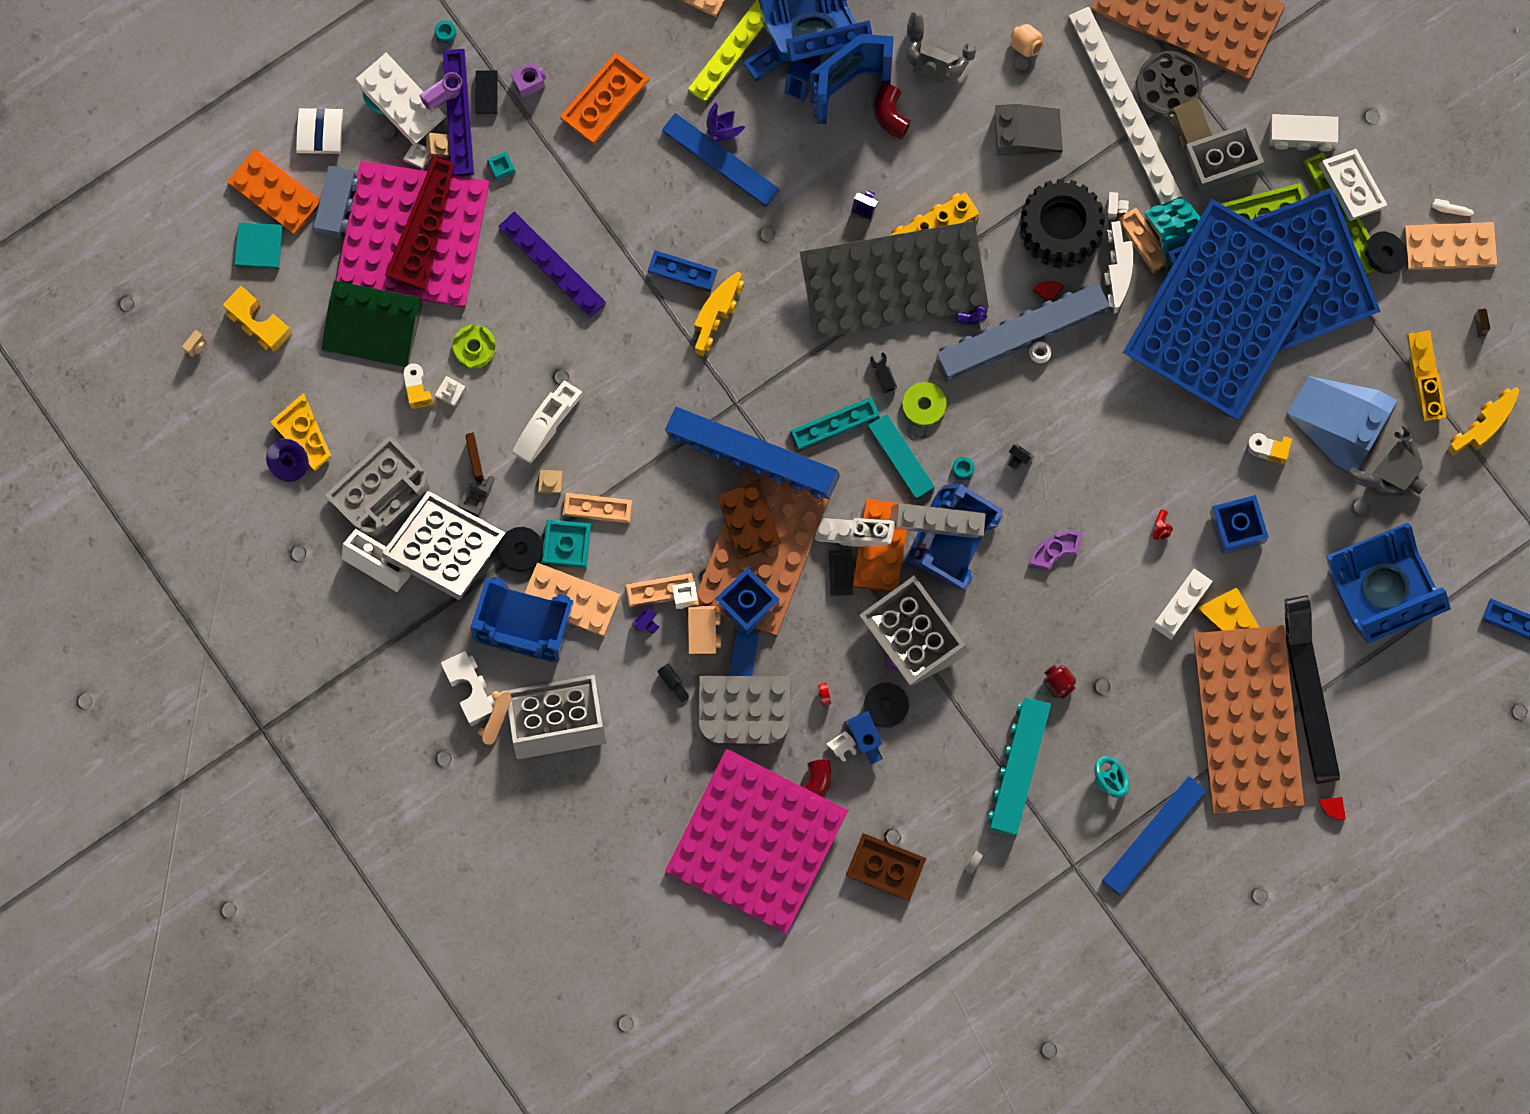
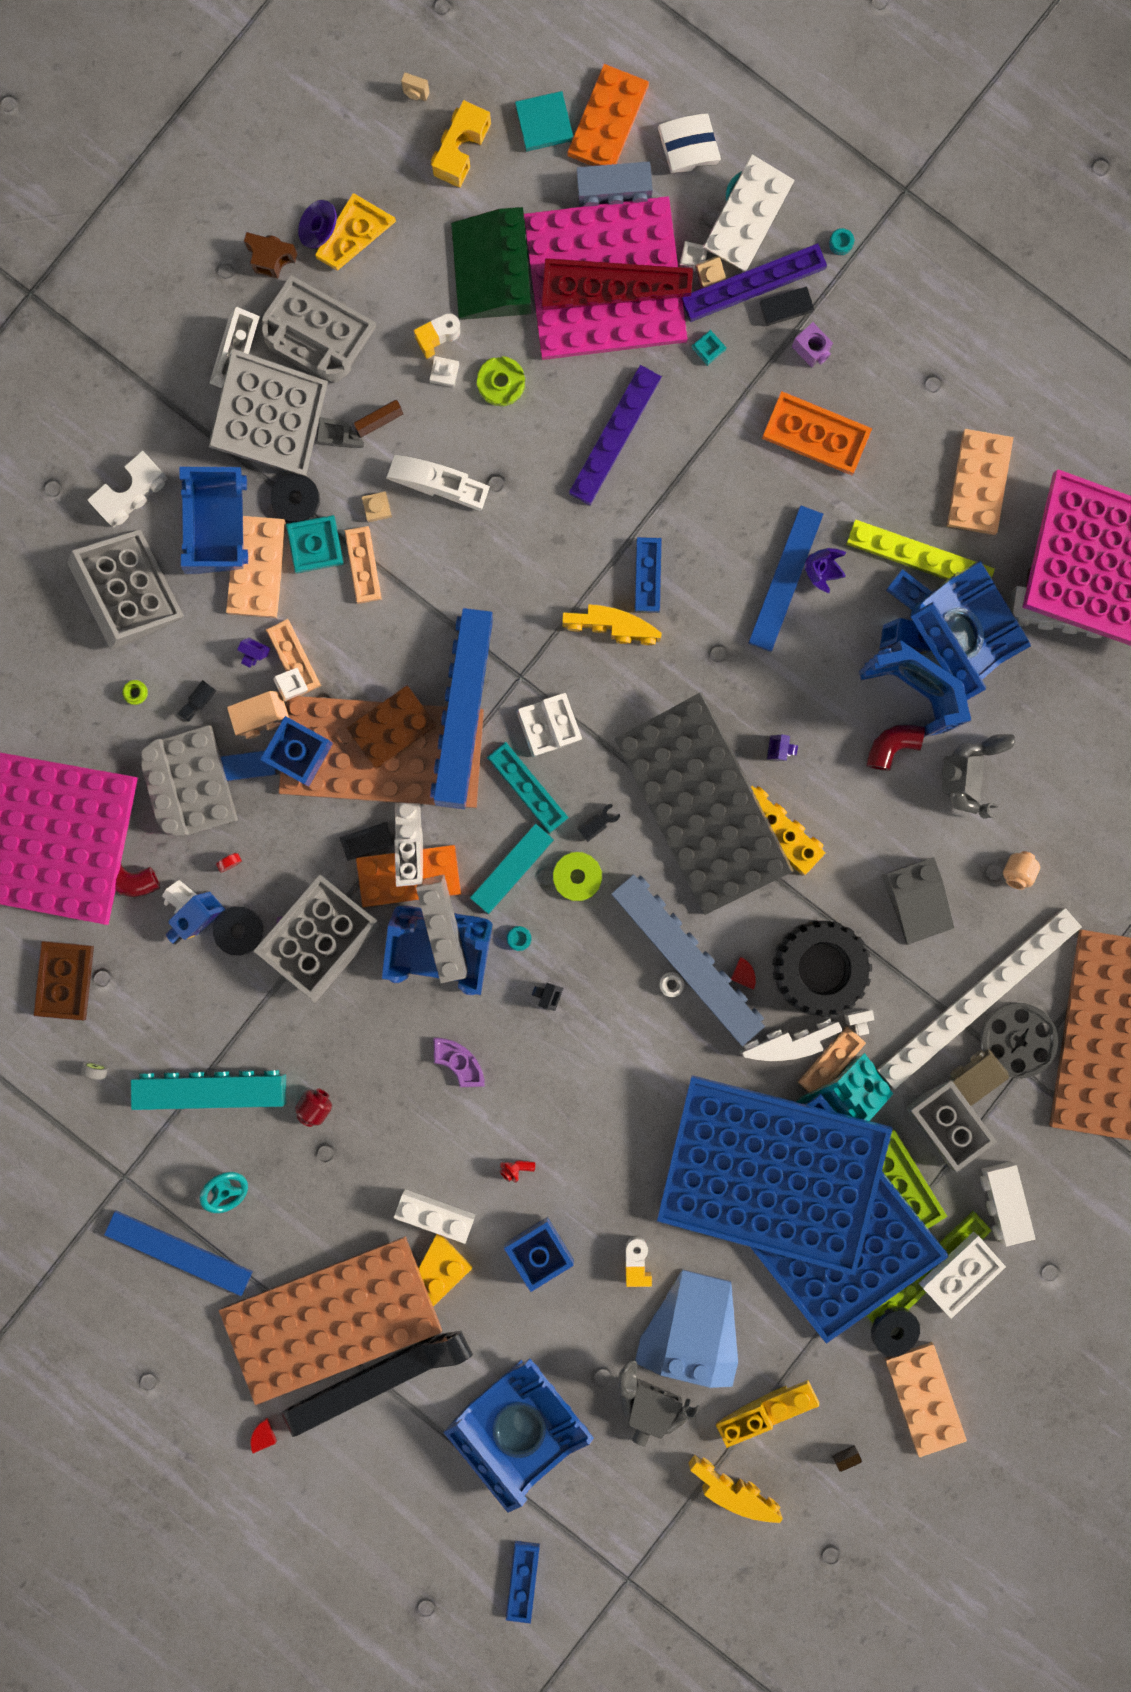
camera: 70 degrees right, 10 degrees up
(299, 509) = (269, 254): none -> reddish brown brick
(441, 92) = (765, 251): medium lavender piece -> none
(497, 716) = (107, 527): light nougat piece -> none
(649, 728) = (129, 687): none -> lime plate
(786, 391) = (548, 725): none -> white slope
(973, 319) = (687, 901): dark purple arm -> none
(1446, 207) = (968, 1382): white piece -> none

